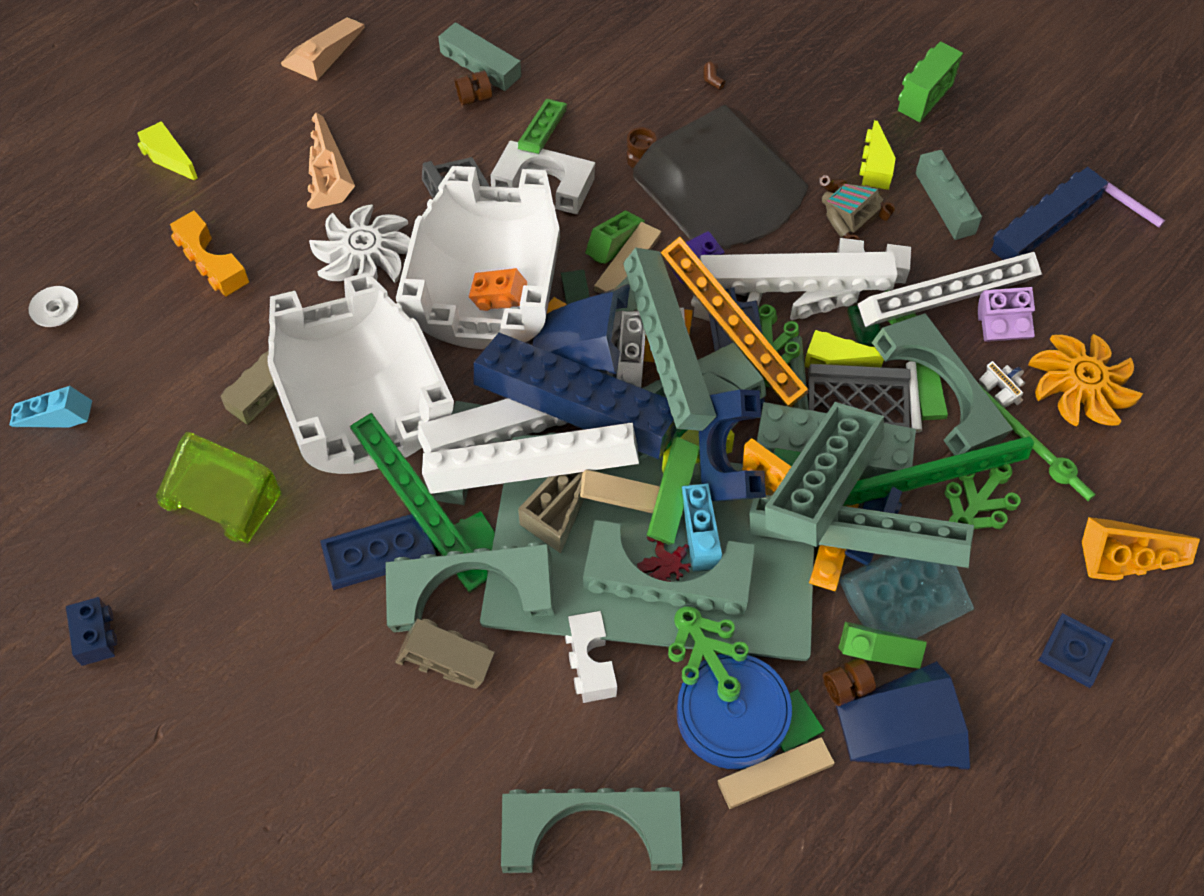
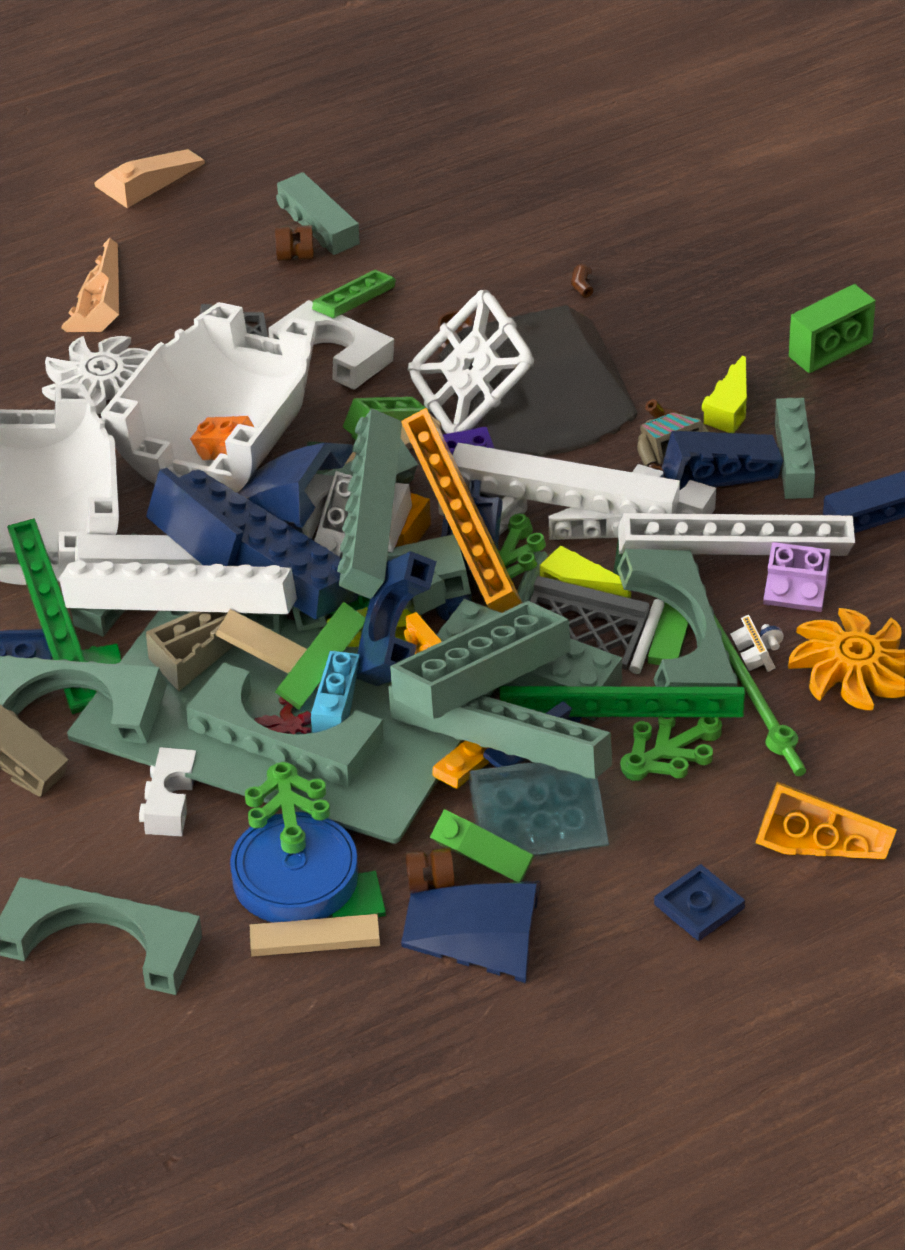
camera: 20 degrees right, 15 degrees down
(521, 391) = (193, 521): none -> dark blue tile
(688, 176) = (485, 360): none -> white plate
(901, 220) = (721, 458): none -> dark blue wedge

